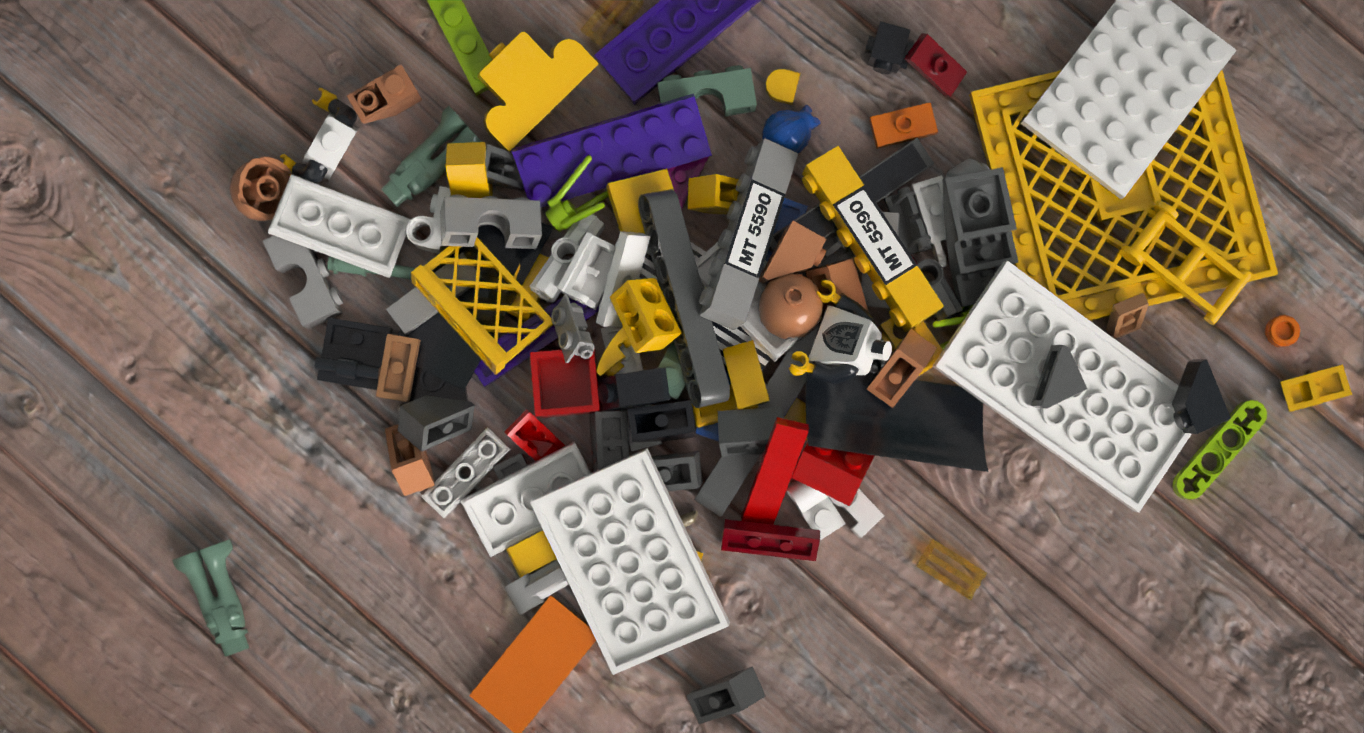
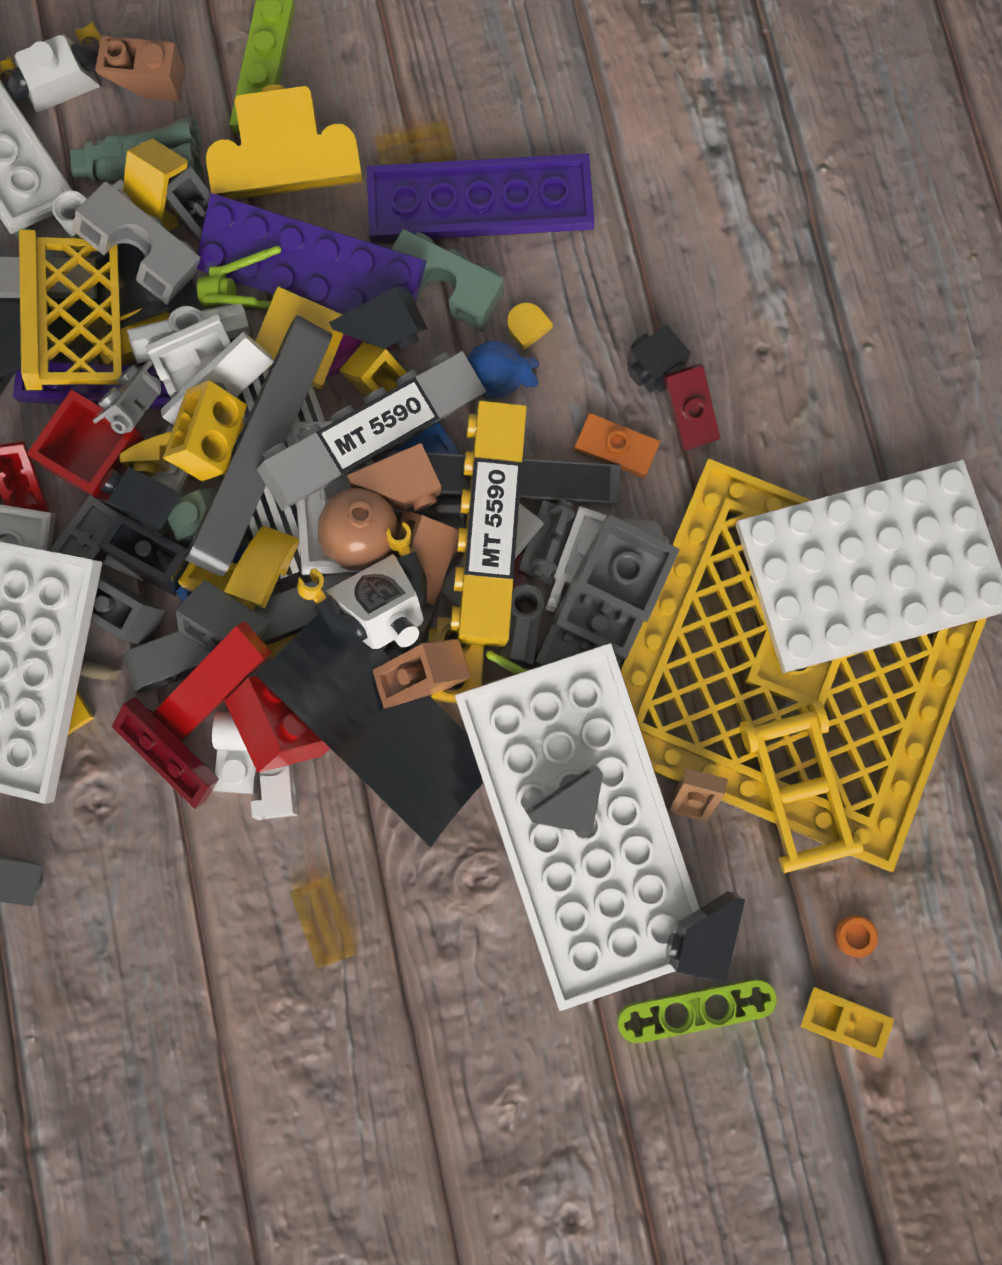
camera: 40 degrees right, 5 degrees down
(699, 156) = (384, 320): none -> black slope

